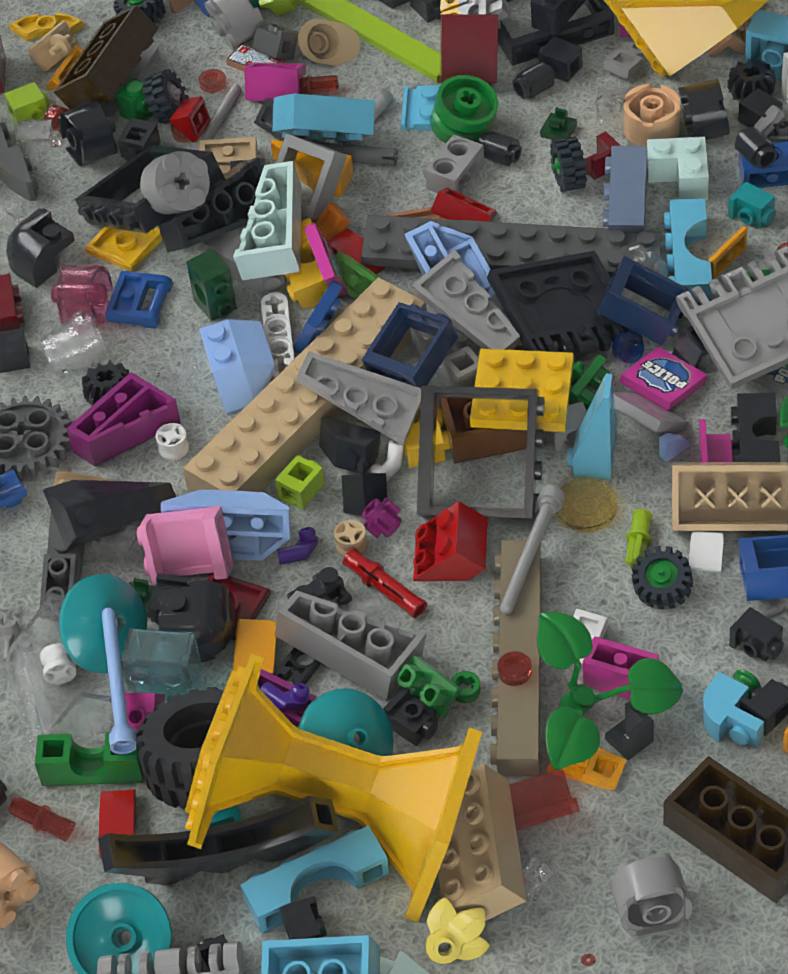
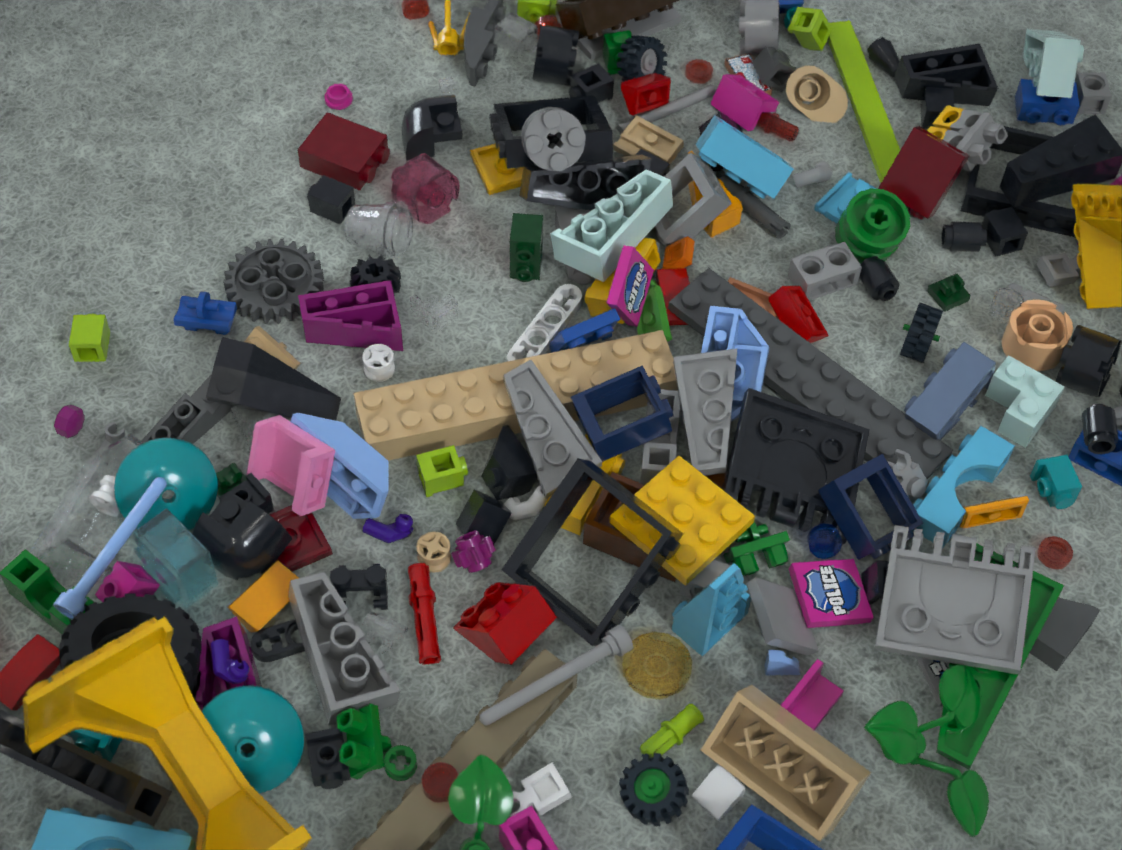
camera: 30 degrees right, 5 degrees up
(129, 297) = (464, 214): blue plate -> none
(238, 360) = (490, 324): light blue wedge -> none
(596, 163) = (971, 336): dark red panel -> none
(754, 418) = (872, 691): black arch -> none

